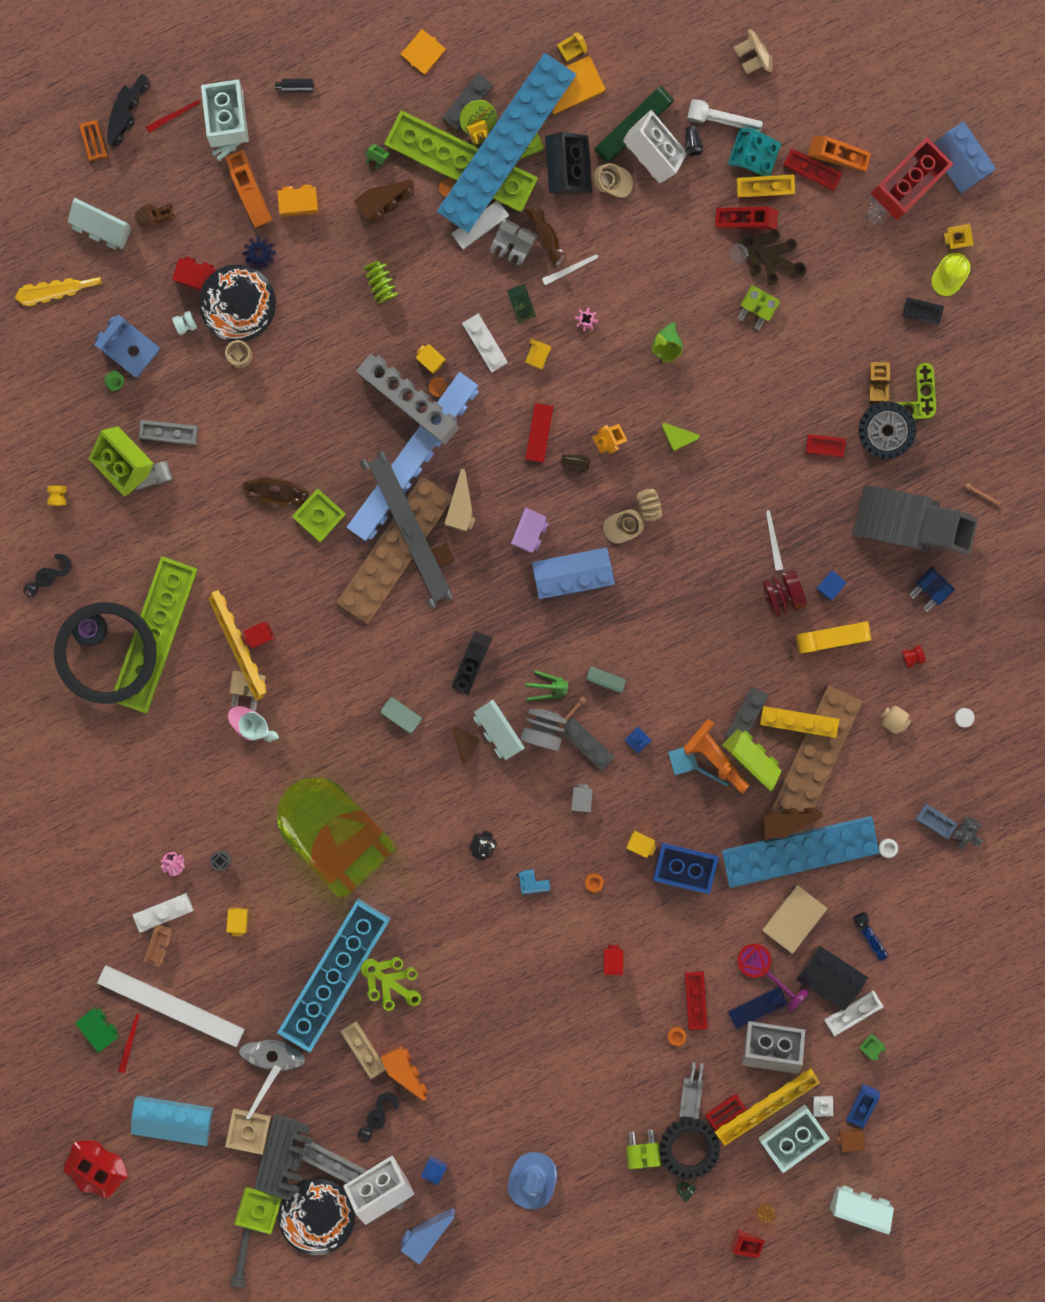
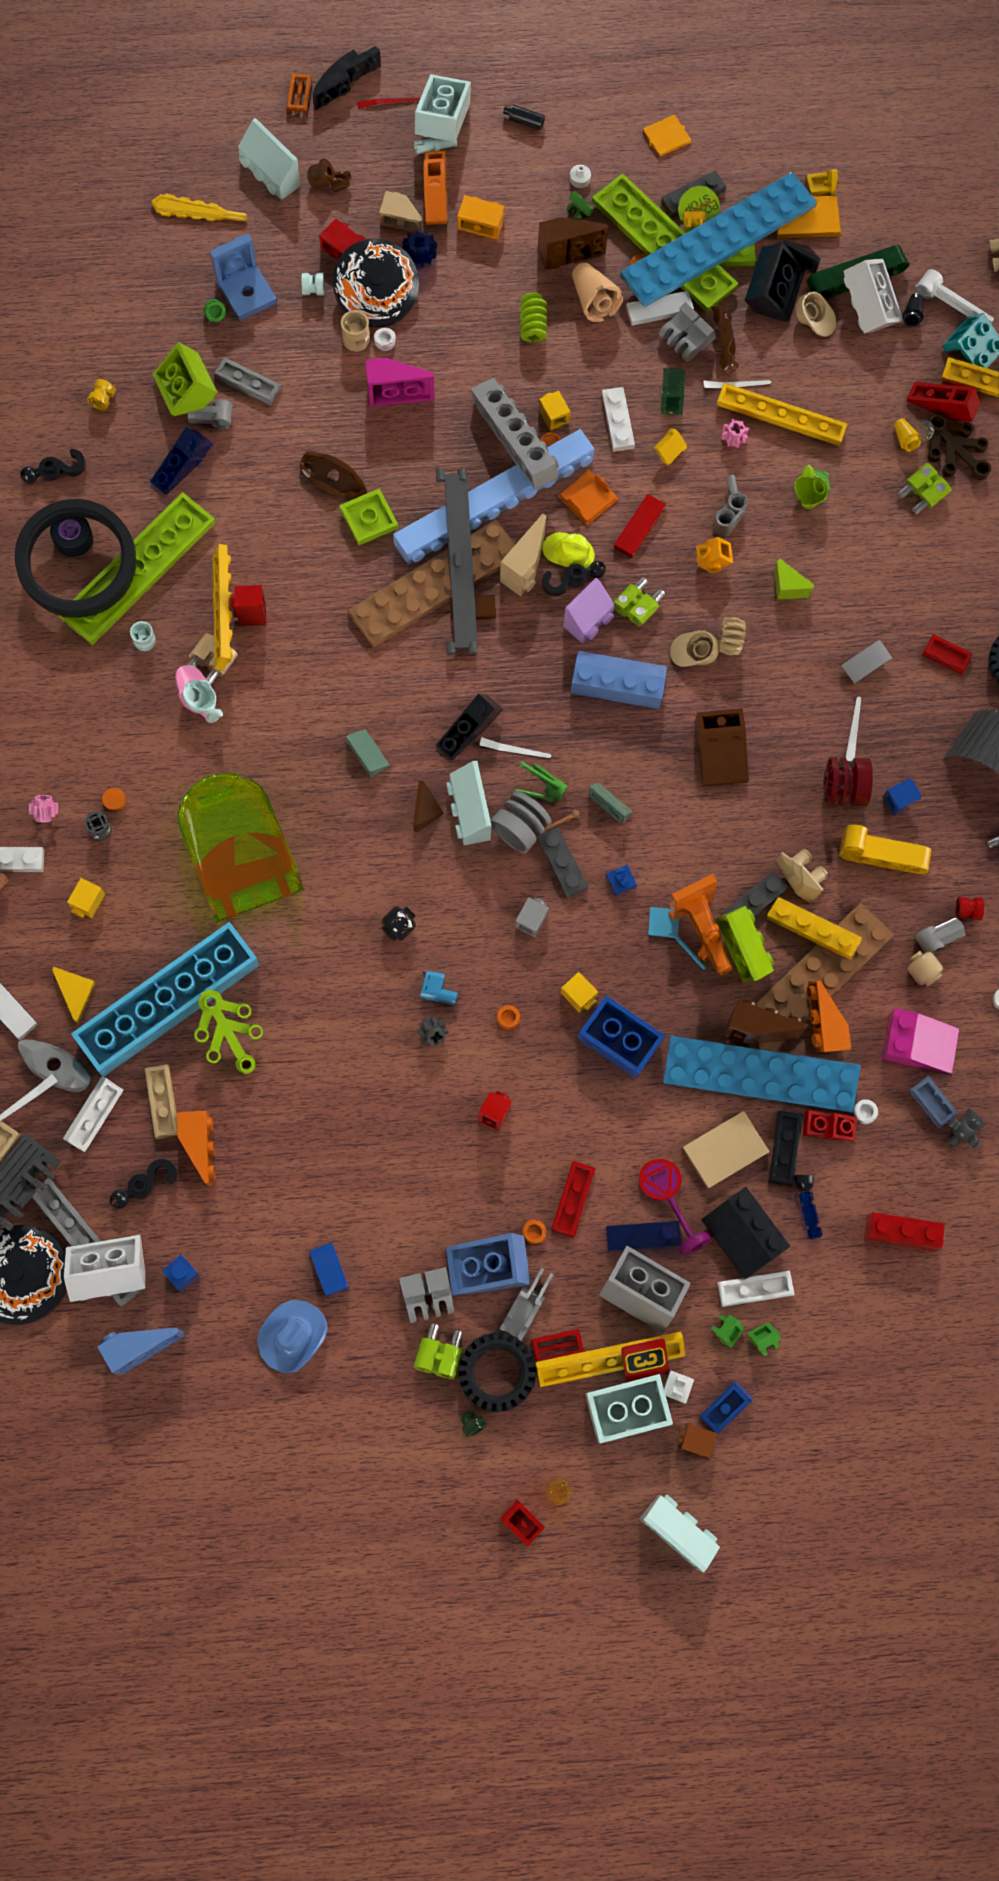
camera: 20 degrees right, 15 degrees down
(147, 527) = (181, 460): none -> clear blue slope
(183, 689) = (140, 631): none -> light aqua wheel
(222, 832) = (114, 799): none -> orange tile
(227, 225) = (399, 213): none -> tan slope
(261, 992) = (75, 991): none -> yellow tile
(264, 347) = (384, 339): none -> white tile
(288, 392) = (397, 383): none -> dark pink slope
(317, 1081) = (93, 1114): none -> white plate
(365, 128) = (580, 176): none -> white tile
(421, 235) = (596, 293): none -> light nougat cone
(487, 423) = (588, 497): none -> orange piece
(490, 477) = (568, 549): none -> neon yellow piece
(495, 668) = (502, 747): none -> white sticker
(504, 500) = (574, 576): none -> black piece
(538, 1123) = (329, 1269): none -> blue slope
(542, 918) = (432, 1031): none -> dark grey gear
(563, 505) = (637, 605): none -> lime piece
(578, 463) = (668, 568): dark brown cone -> none
(580, 125) = (804, 254): none -> black slope
(605, 393) = (728, 512): none -> light grey beam
(617, 285) = (781, 414): none -> yellow plate
(620, 1104) = (435, 1285): none -> light grey legs
(653, 1075) = (488, 1265): none -> medium blue slope
(676, 602) = (722, 746): none -> reddish brown slope
(726, 262) = (907, 435): none -> yellow cone
(764, 481) = (866, 661): none -> light grey slope
(778, 689) = (800, 879): none -> tan connector
(793, 1098) = (645, 1359): none -> sticker
(838, 900) = (785, 1148): none -> black tile
(840, 799) = (829, 1025): none -> orange slope
(846, 1052) = (729, 1331): none -> bright green tile
(865, 870) = (829, 1126): none -> red slope
(895, 691) = (935, 938): none -> light grey piece
(911, 778) = (920, 1041): none -> slope
(948, 929) = (904, 1231): none -> red brick

